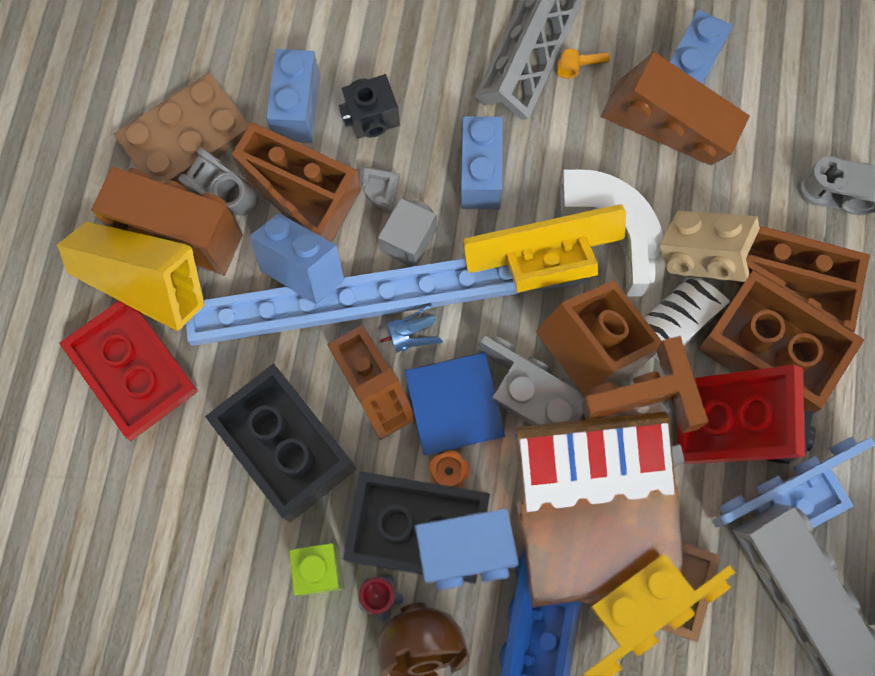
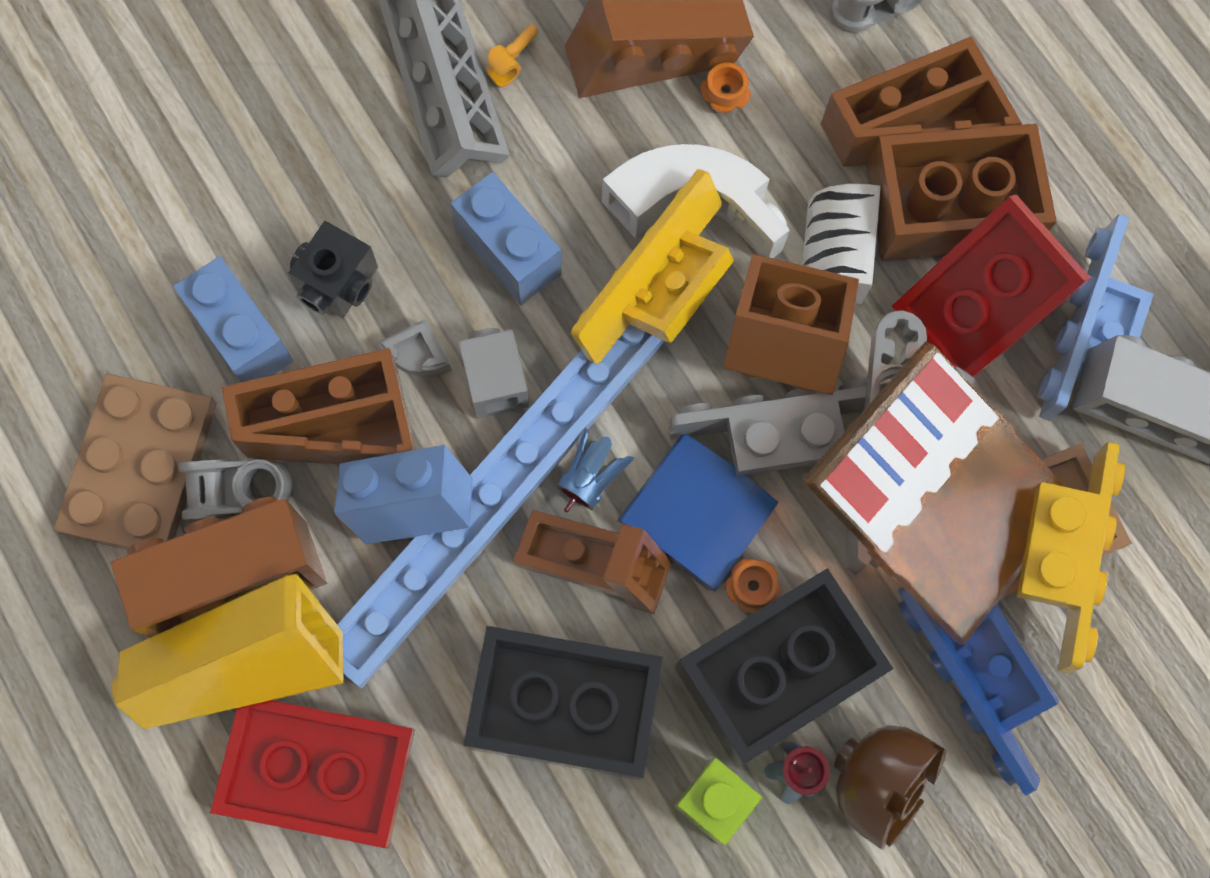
camera: 50 degrees left, 0 degrees up
(467, 548) = (862, 641): medium blue brick -> none
(651, 389) = (911, 305): dark orange bracket -> none
(696, 166) = (729, 76): none -> orange plate
(709, 245) = (816, 143): tan bracket -> none

